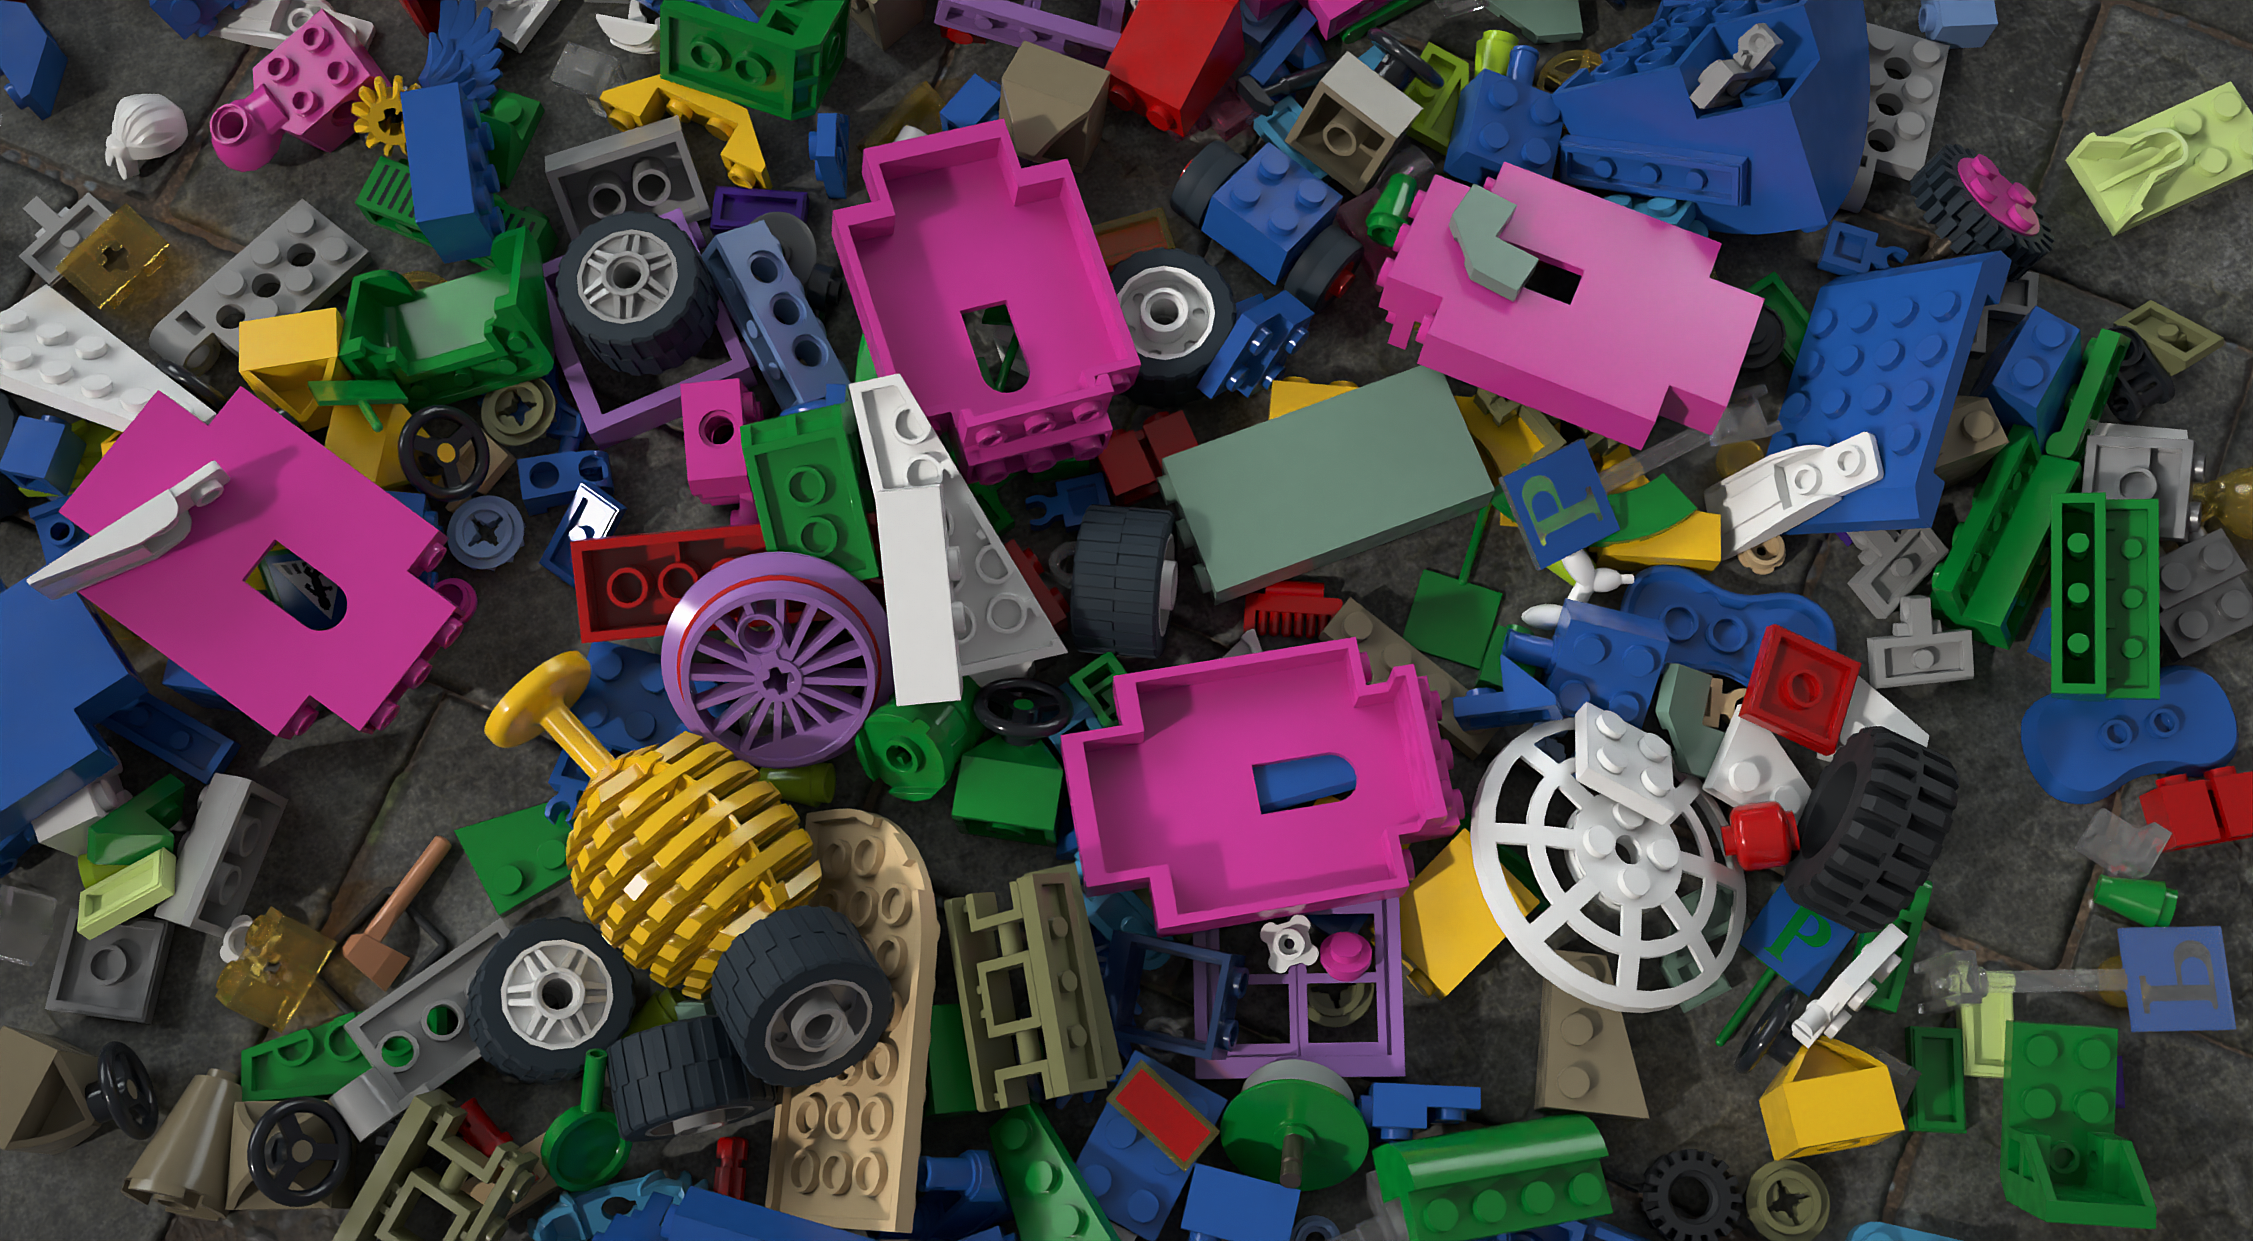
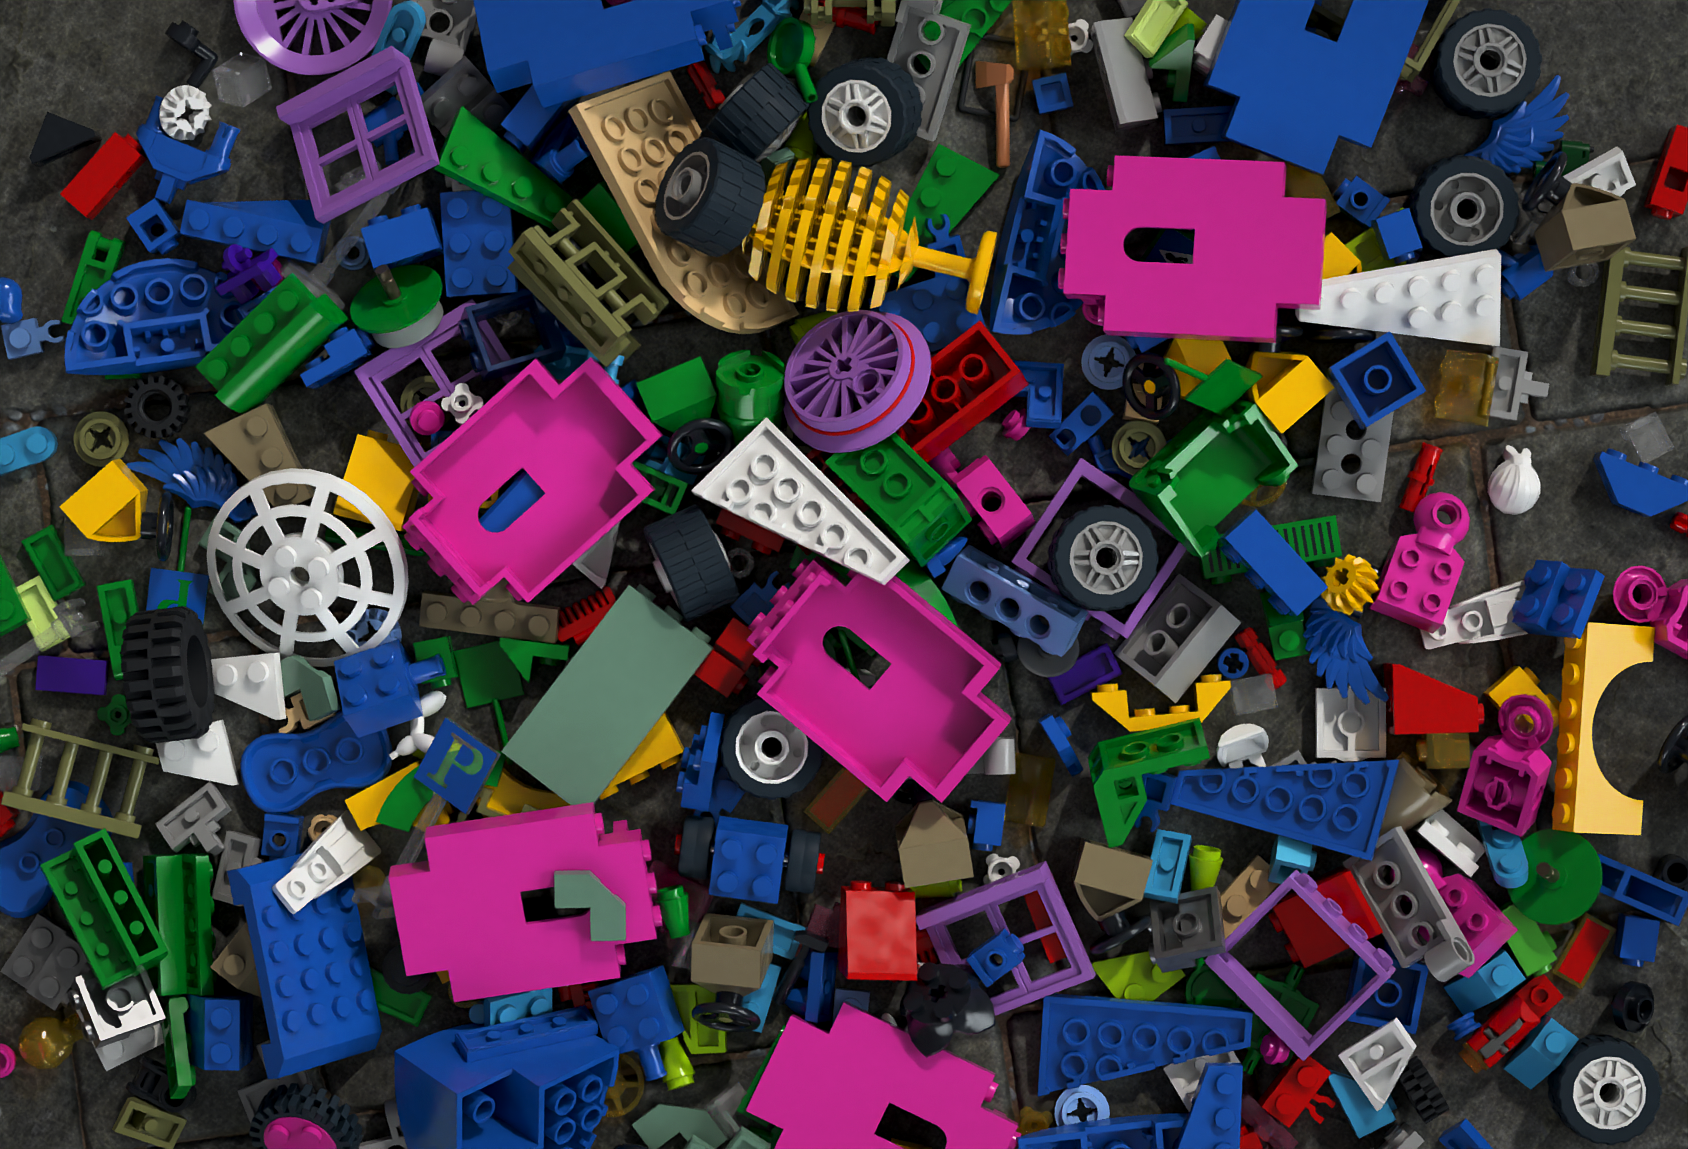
camera: 145 degrees right, 15 degrees up
(134, 538) = (1258, 212): piece -> none
(188, 304) = (1375, 380): none -> blue brick
(240, 197) = (1421, 476): none -> red pin
(322, 888) = (1052, 93): none -> blue plate
(438, 737) = (1029, 252): none -> blue brick
(553, 117) = (1260, 656): none -> red axle
(584, 115) = (1223, 669): none -> blue bush
(640, 519) = (1015, 425): none -> dark pink plate
(920, 594) = (789, 466): white brick -> none
(987, 51) = (995, 863): none -> white plate
(1162, 1115) = (475, 263): red tile -> none
(1394, 608) = (522, 653): none -> green slope
(1520, 703) = (413, 632): blue slope -> none
(1624, 763) = (330, 629): white plate -> none
(1689, 1081) = (194, 476): none -> blue animal
(1726, 79) = (500, 1122): light grey hinge -> none
(1760, 835) = (229, 640): red head -> none
(1800, 690) = (253, 747): red tile -> none
(1810, 579) = (290, 827): none -> blue brick
(1851, 988) = (129, 572): white plate -> none
(1854, 251) = (374, 1069): blue plate -> none
(1964, 845) = (107, 714): none -> green plate
(1985, 923) = (72, 675): none -> dark purple tile
(2097, 762) = (89, 812): none -> olive fence

